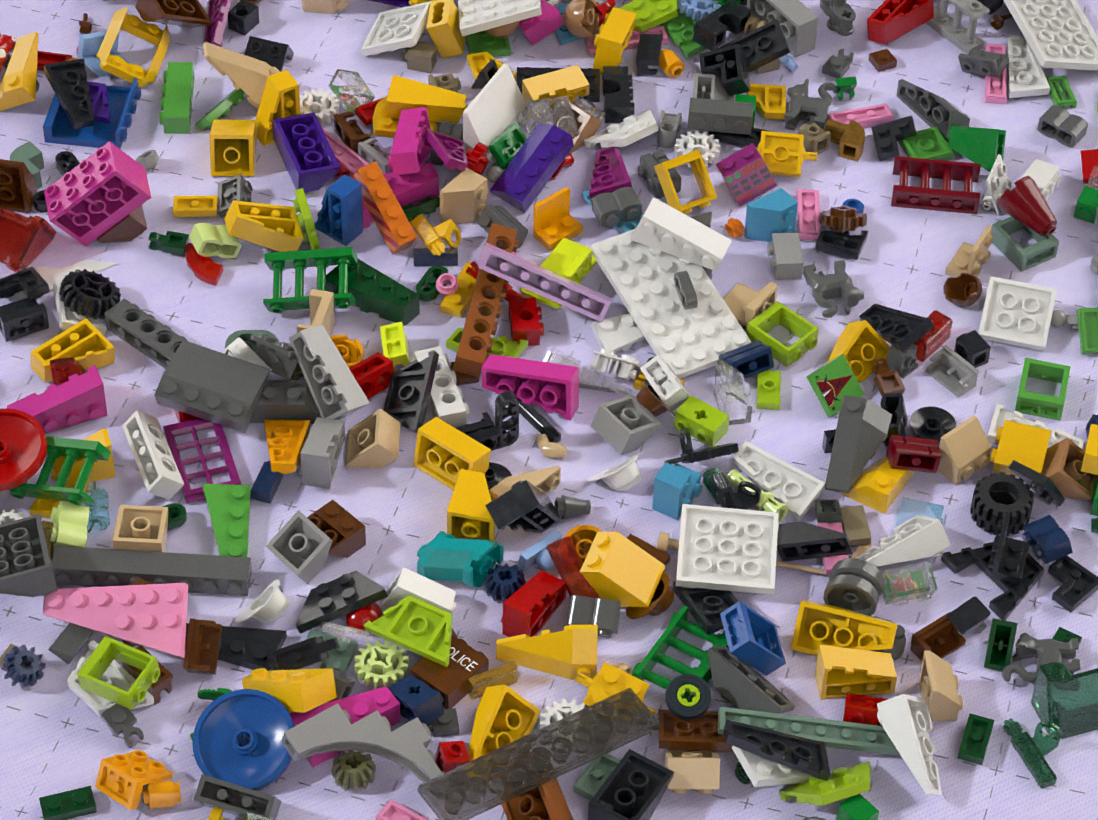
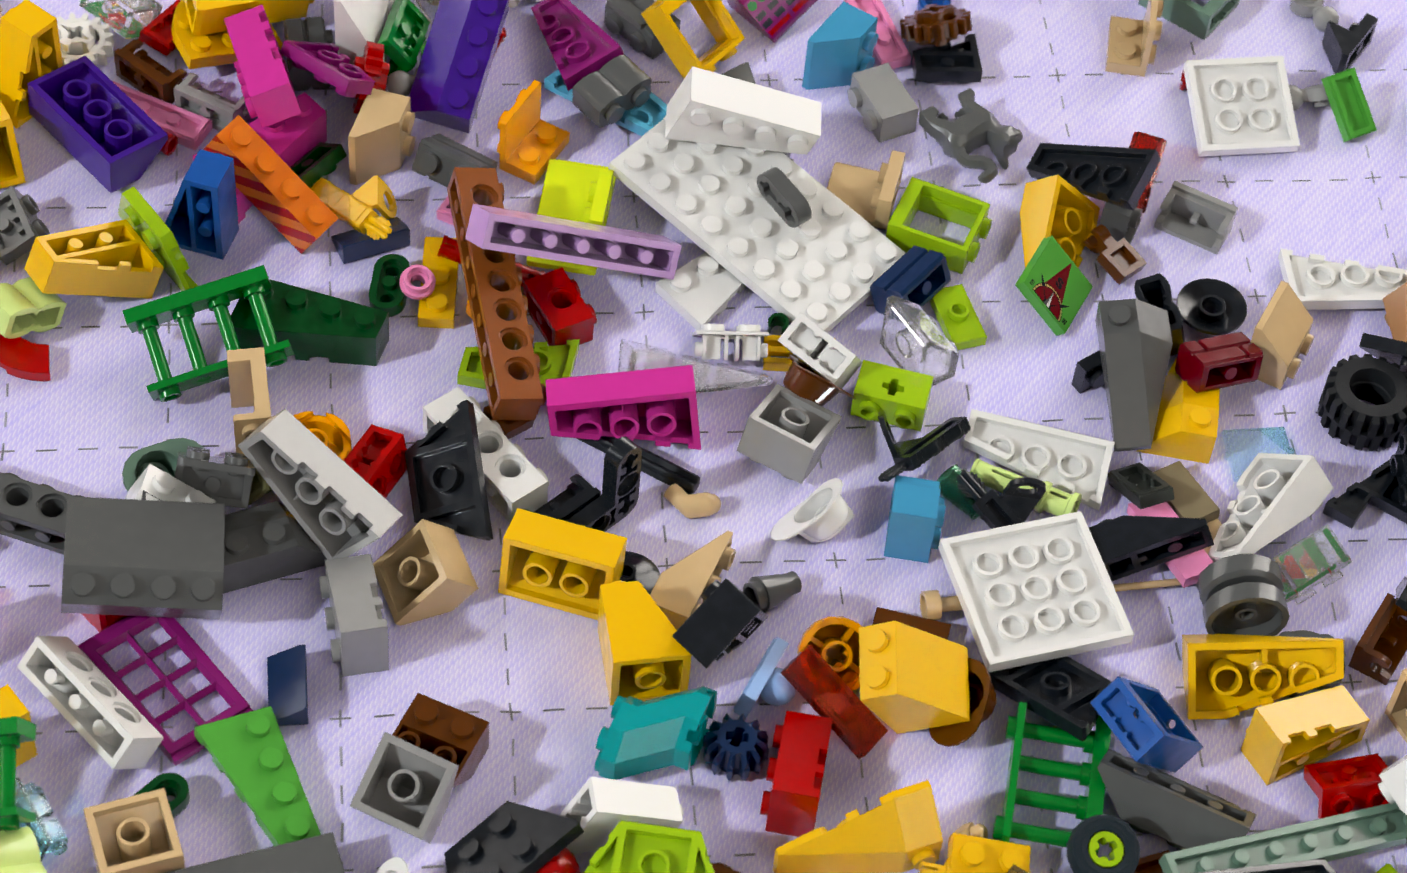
camera: 25 degrees left, 5 degrees up
(285, 443) = (294, 618): light orange wing -> none
(395, 344) = (385, 402): neon yellow hinge -> none
(595, 611) = (894, 758): dark grey brick -> none
(734, 228) = (788, 78): orange plate -> none
(963, 289) = (1150, 89): reddish brown hair -> none
(973, 348) = (1206, 173): black brick -> none
(1020, 443) = (1352, 306): yellow piece -> none
(1050, 406) = (1317, 236): bright green window -> none

